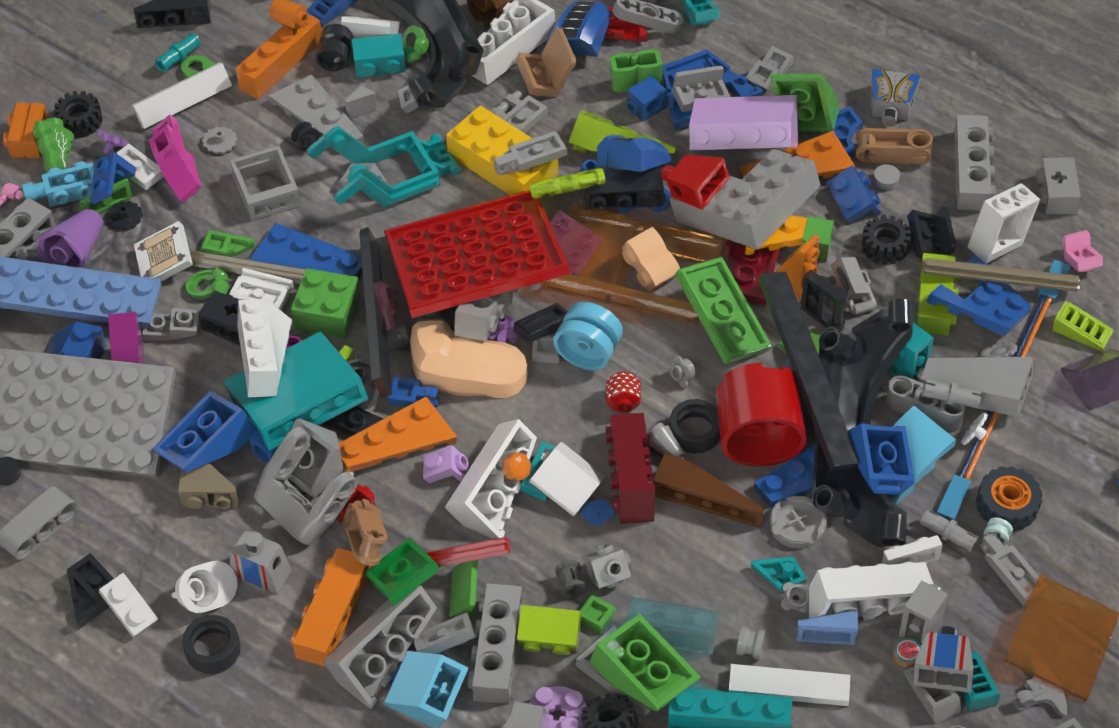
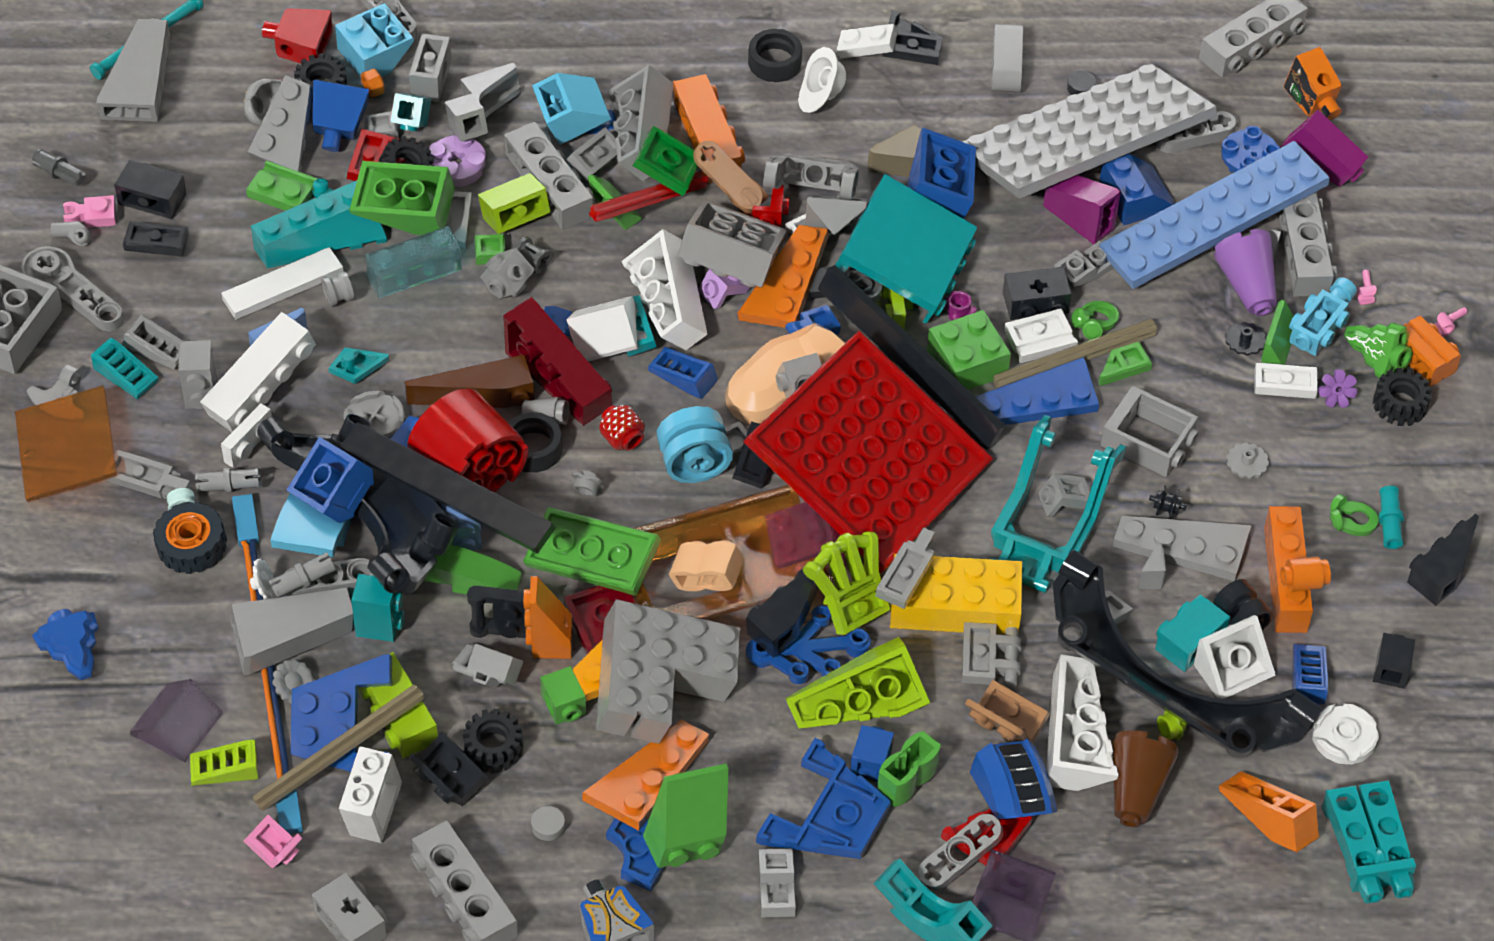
camera: 140 degrees right, 0 degrees up
(107, 171) = (1296, 337): blue bracket -> none
(163, 253) = (1160, 311): tile -> none
(173, 159) = (1248, 393): dark pink slope -> none
(182, 95) = (1329, 472): white tile -> none
(260, 562) = (796, 118): light grey torso -> none
(263, 344) = (963, 245): white wedge -> none
(386, 304) = (912, 366): clear pink tile -> none
(418, 470) = (731, 243): none -> light grey slope
(420, 47) = (1157, 660): bright green piece -> none
(516, 466) = (651, 294): orange tile -> none
(532, 399) = (697, 384): none -> blue slope
(631, 153) = (806, 635): blue slope -> none
(696, 179) = (716, 626): red torso -> none
(698, 84) = (814, 777): light grey bracket -> none
(744, 122) = (739, 740): lavender slope -> none
(799, 590) = (327, 348): light grey plate -> none
(853, 194) = (561, 775): blue bracket -> none
(894, 146) = (563, 858): medium nougat piece -> none
(944, 661) = (152, 349): light grey torso -> none

